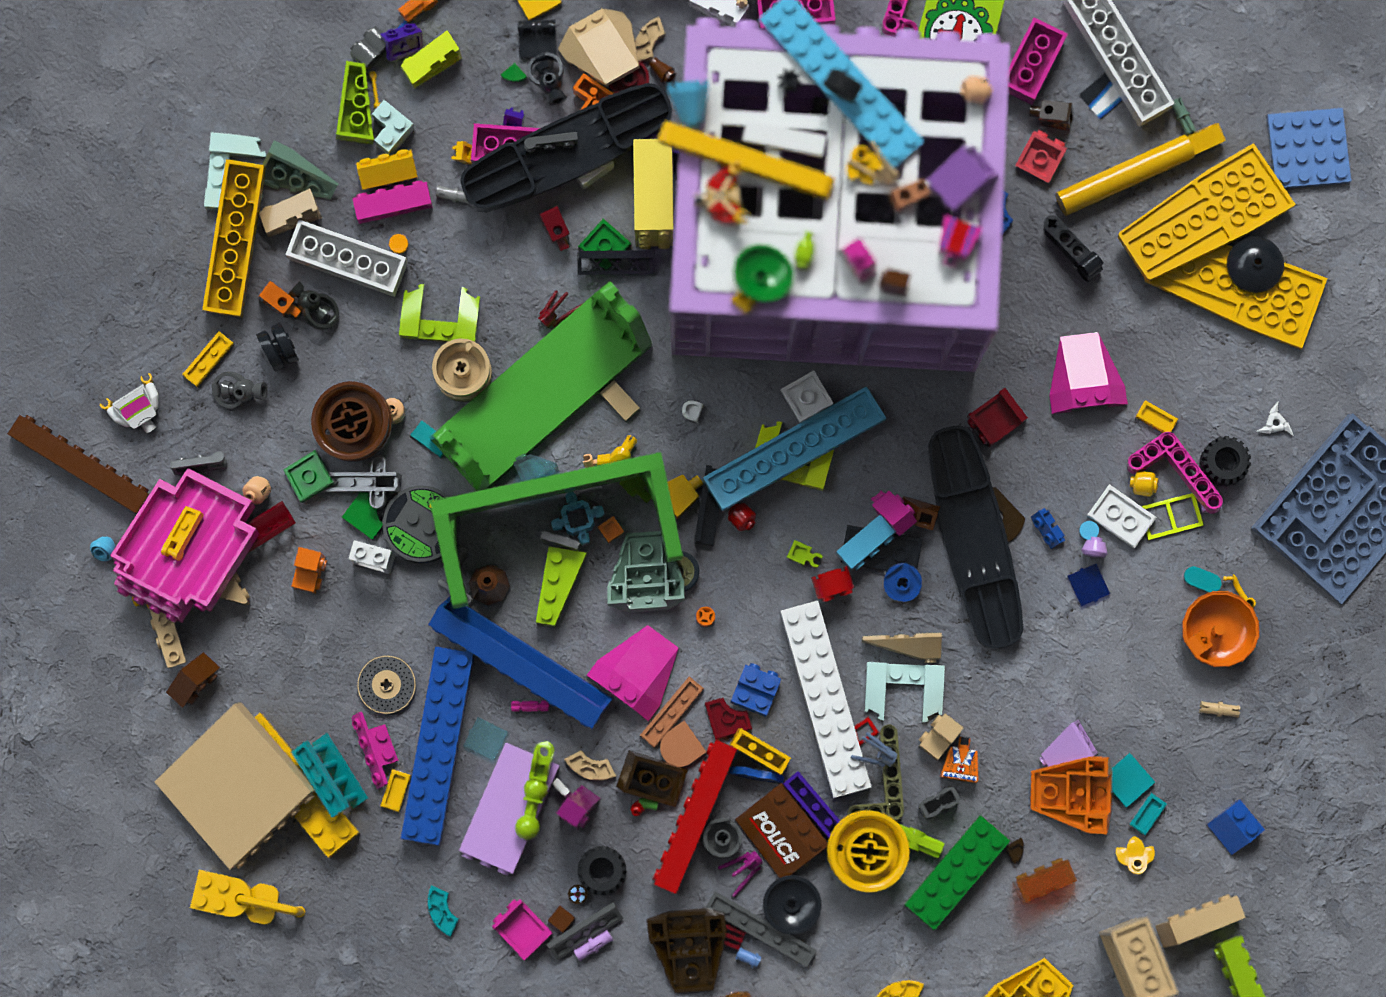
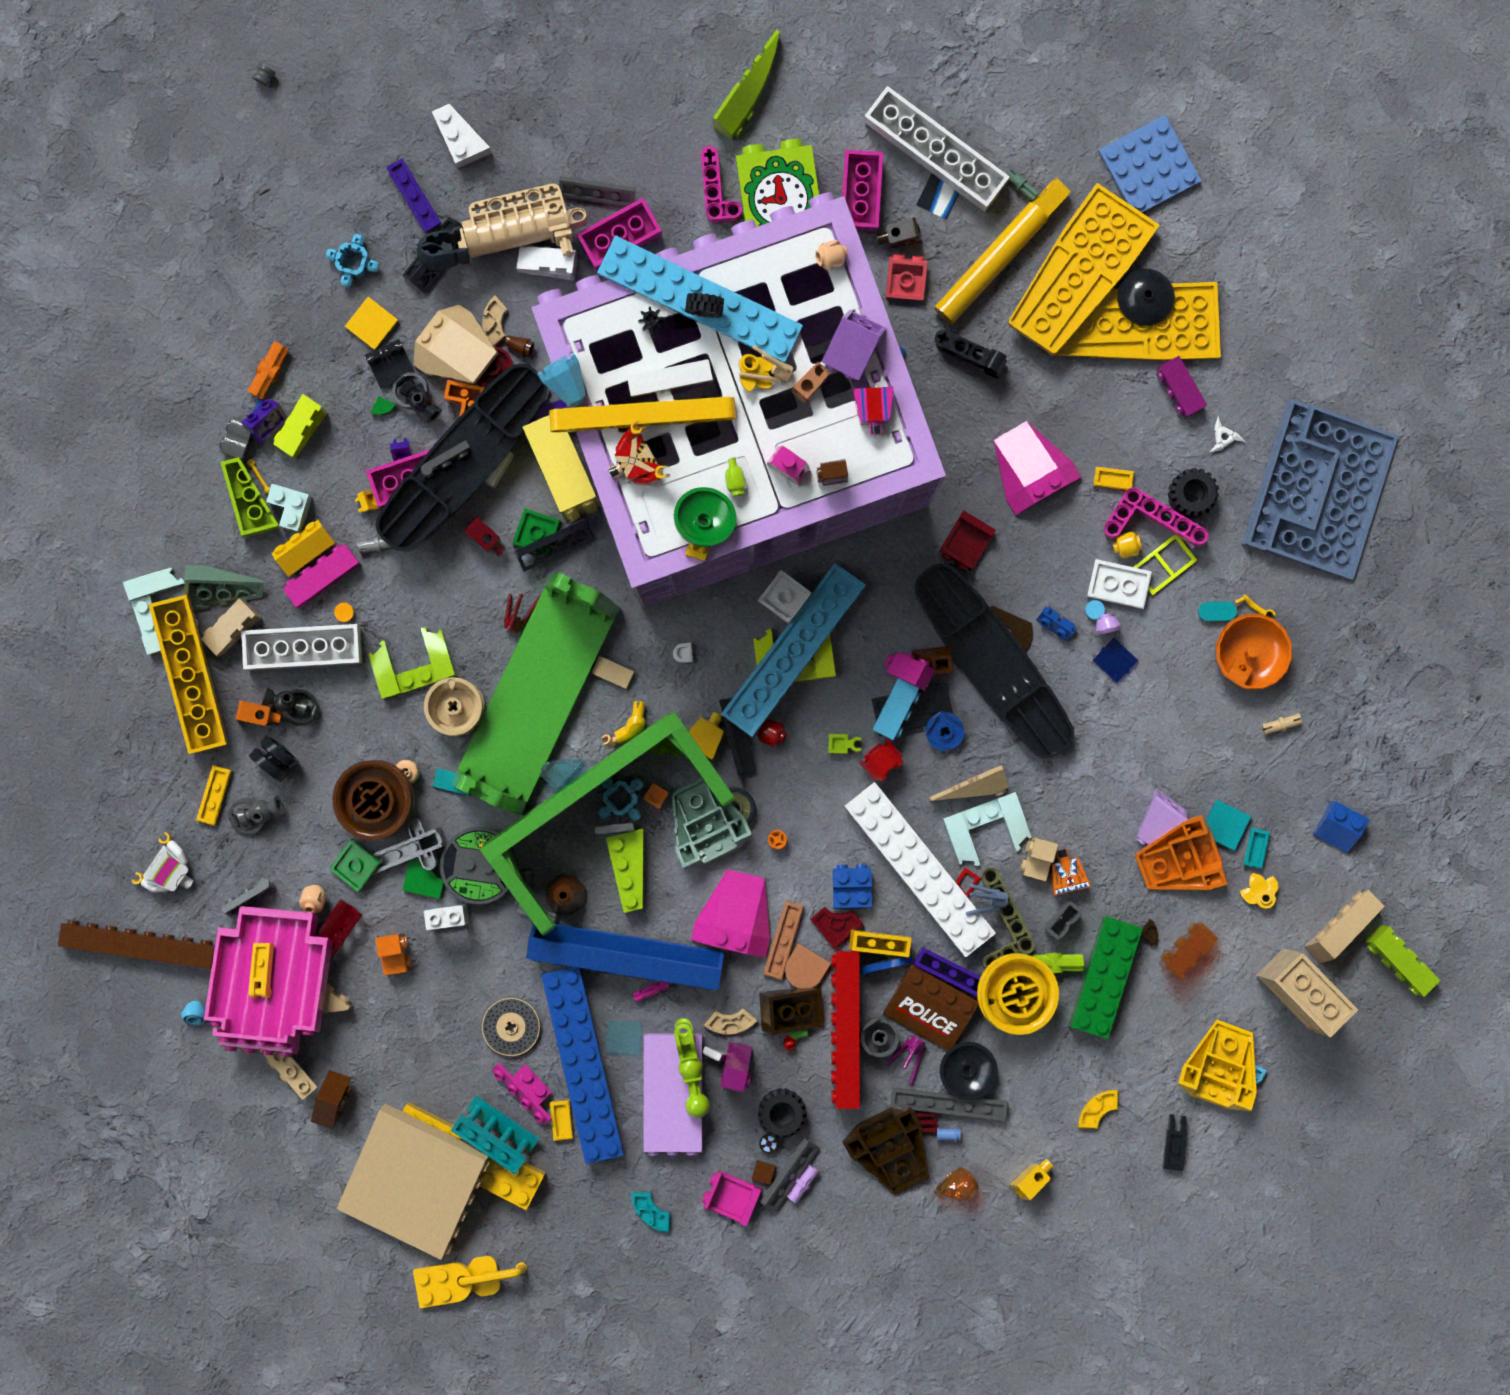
camera: 25 degrees left, 5 degrees up
(1253, 360) = (1181, 387): none -> magenta brick

